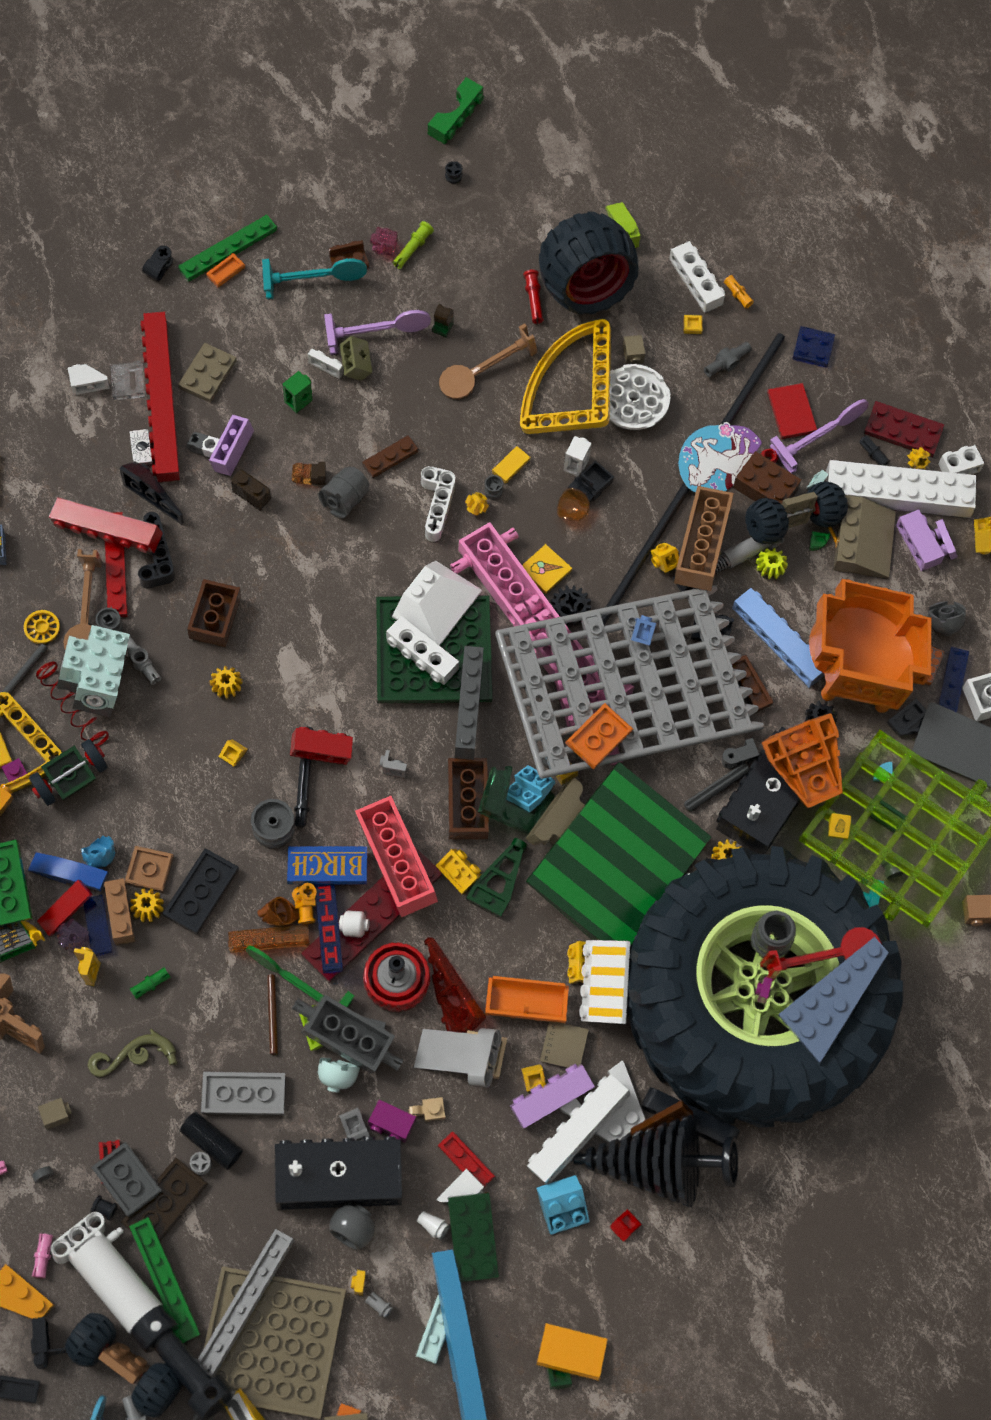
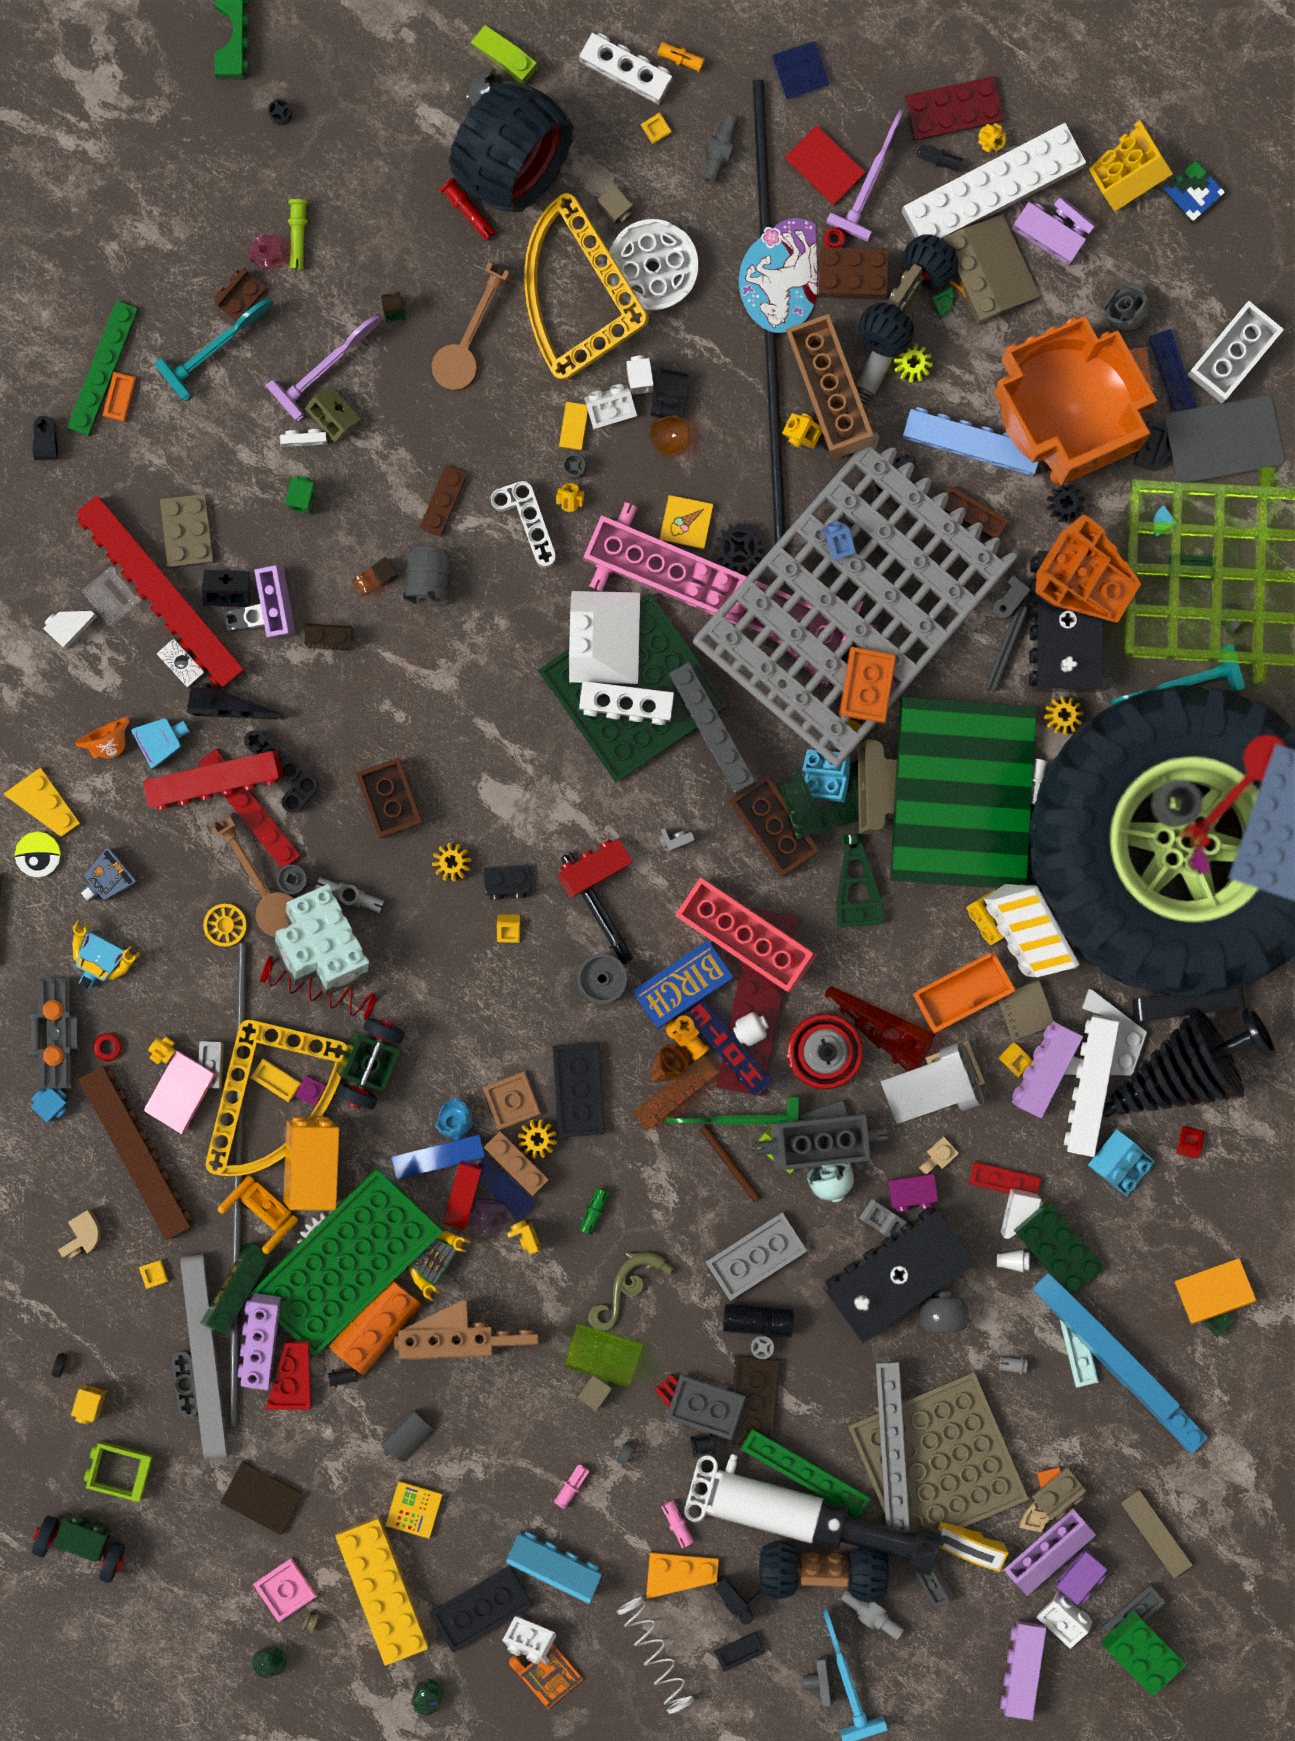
camera: 30 degrees left, 20 degrees up
(55, 463) = (107, 740): none -> orange hat
(79, 1090) = (603, 1355): none -> clear neon green tile
(89, 484) = (160, 740): none -> medium azure torso
(205, 418) = (226, 588): none -> black brick
(255, 720) = (506, 881): none -> black bracket
(358, 1282) = (981, 1358): yellow plate -> none
(459, 870) = (812, 903): yellow bracket -> none
(544, 466) = (610, 406): none -> white bracket
(673, 1112) = (1177, 1013): reddish brown plate -> none
(819, 477) = (902, 235): light aqua tile -> none
(839, 826) = (1158, 620): yellow slope -> none
(961, 464) = (1042, 115): white brick -> none

